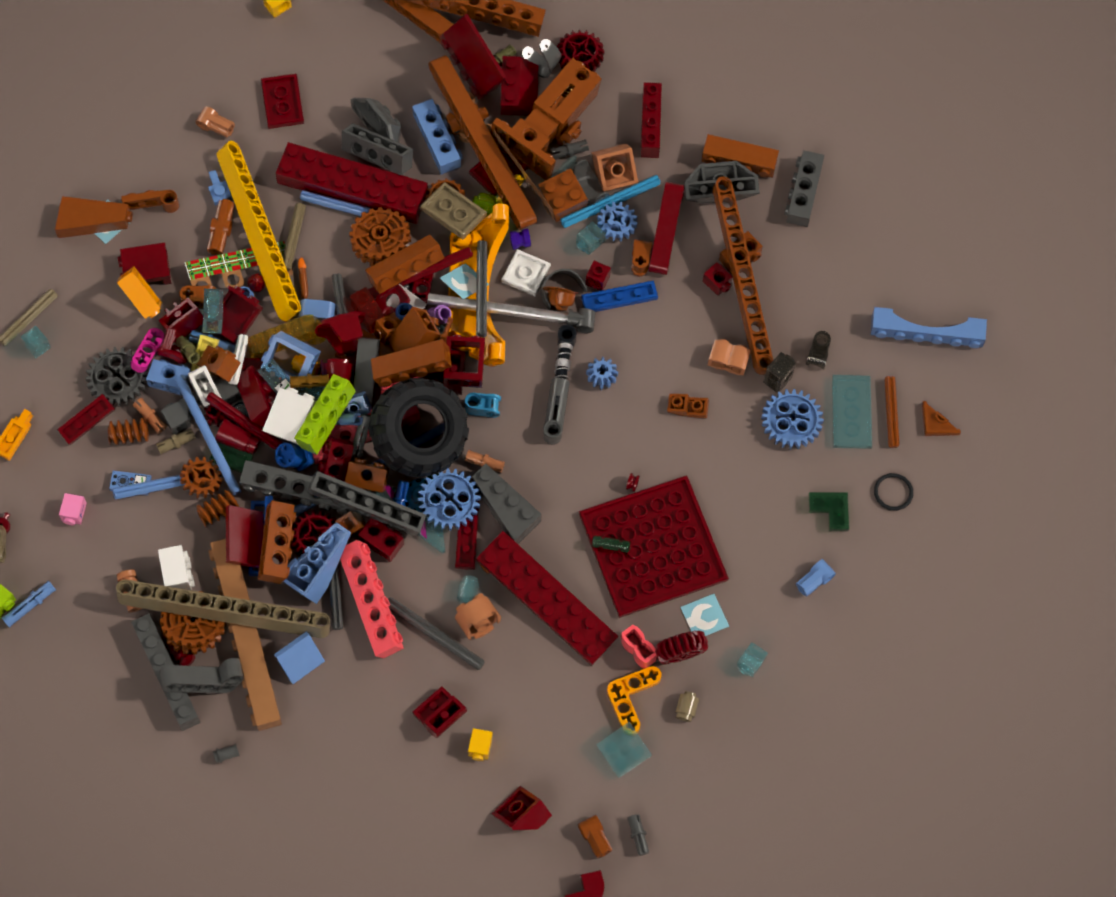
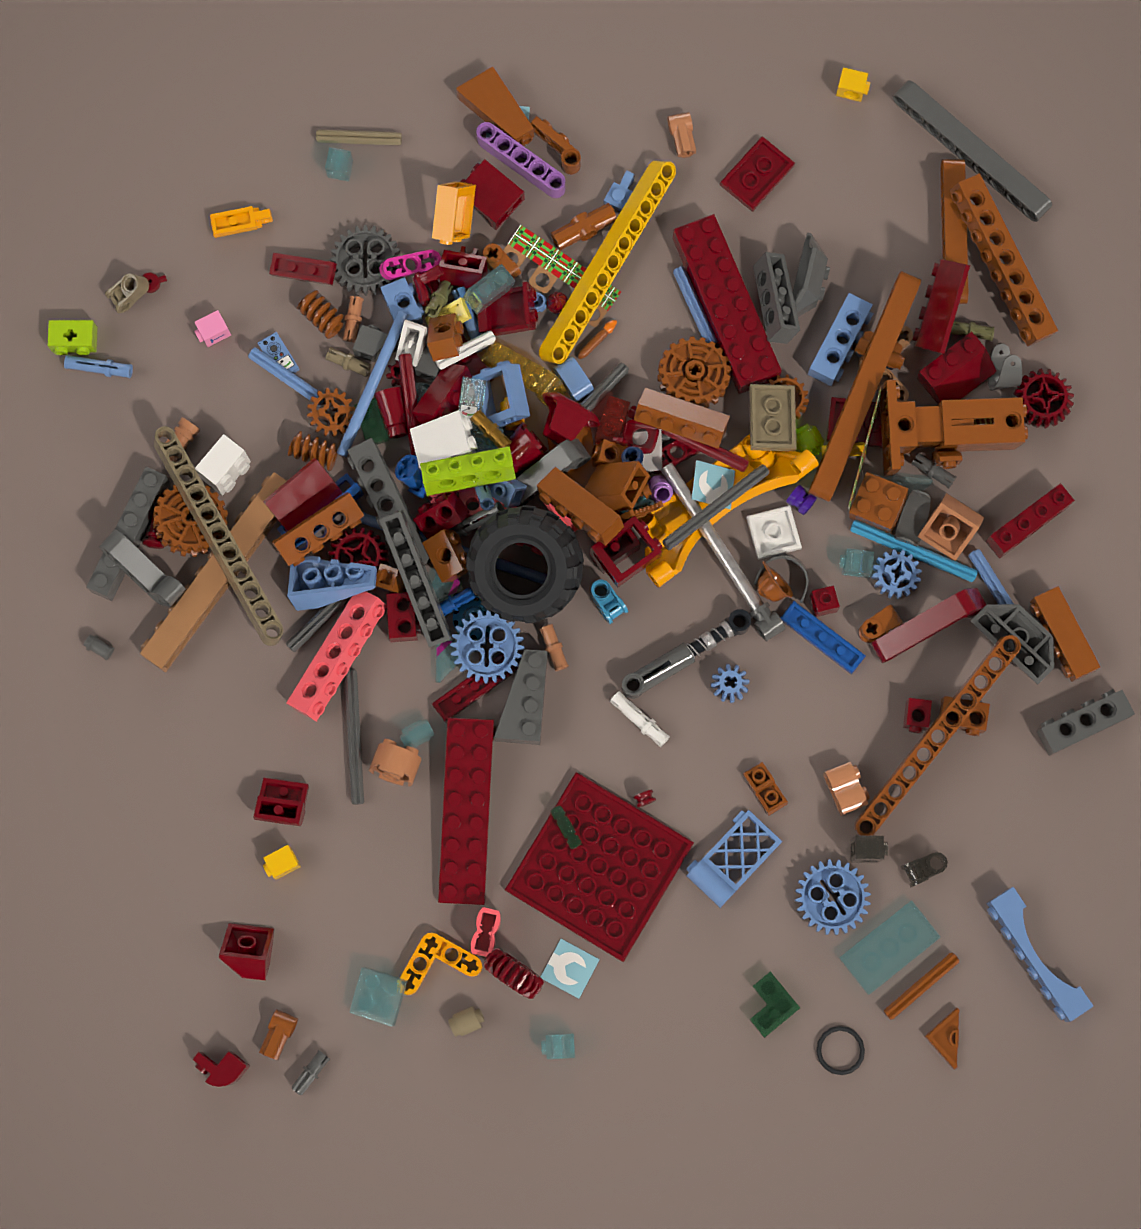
camera: 55 degrees right, 10 degrees up
(149, 233) = (516, 151): none -> medium lavender beam
(293, 235) = (631, 296): dark tan axle -> none
(299, 657) = (231, 638): medium blue tile -> none
(578, 445) = (640, 719): none -> white pin
(665, 171) = (989, 577): none -> medium blue axle
(717, 482) = (709, 876): none -> medium blue piece
(819, 574) = (695, 1044): medium blue piece -> none

